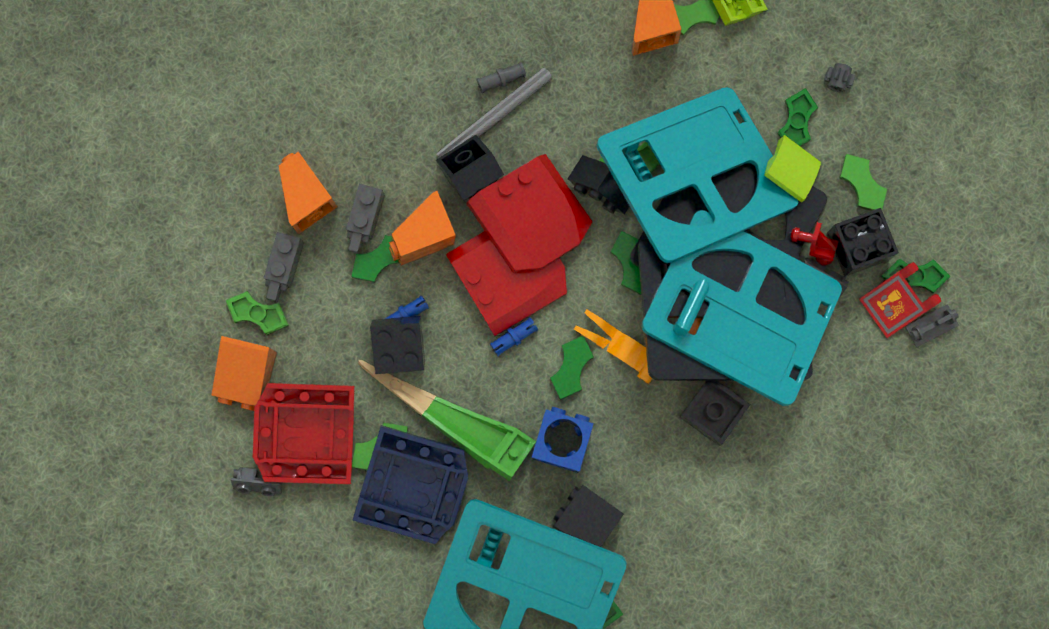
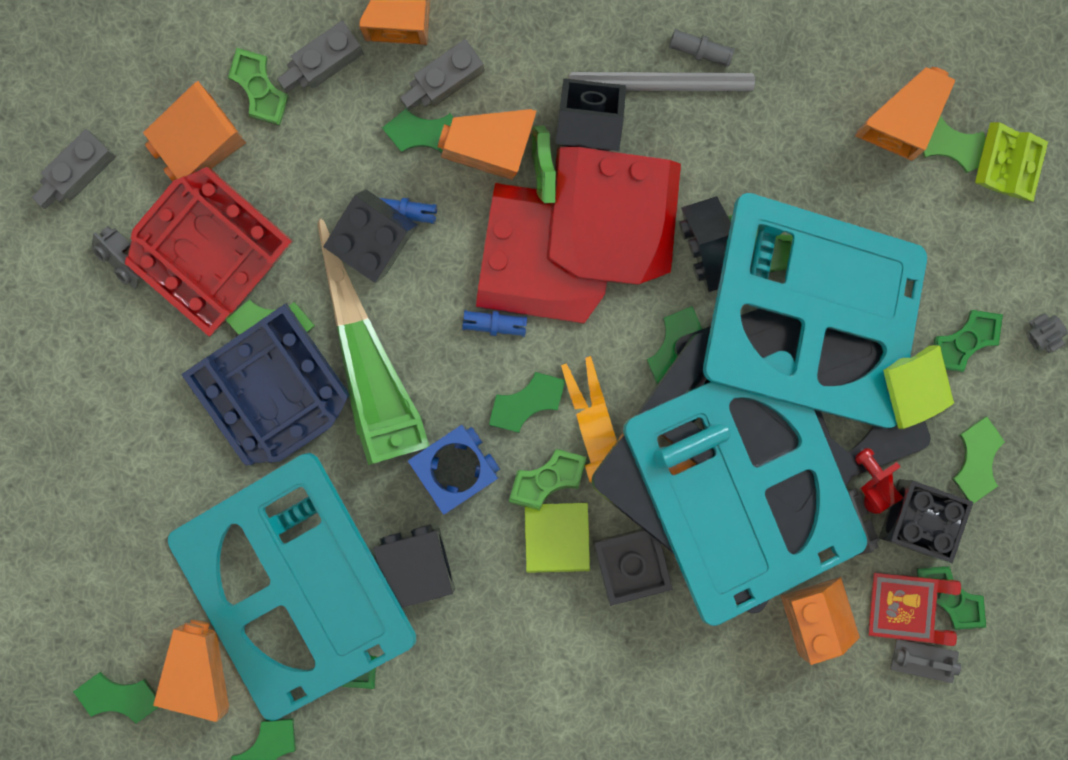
camera: 30 degrees right, 5 degrees up
(186, 452) = (73, 169): none -> dark grey hinge
(465, 219) = (543, 164): none -> bright green tile
(618, 413) = (534, 486): none -> bright green tile
(656, 432) = (557, 538): none -> lime slope
(851, 352) = (821, 621): none -> orange slope

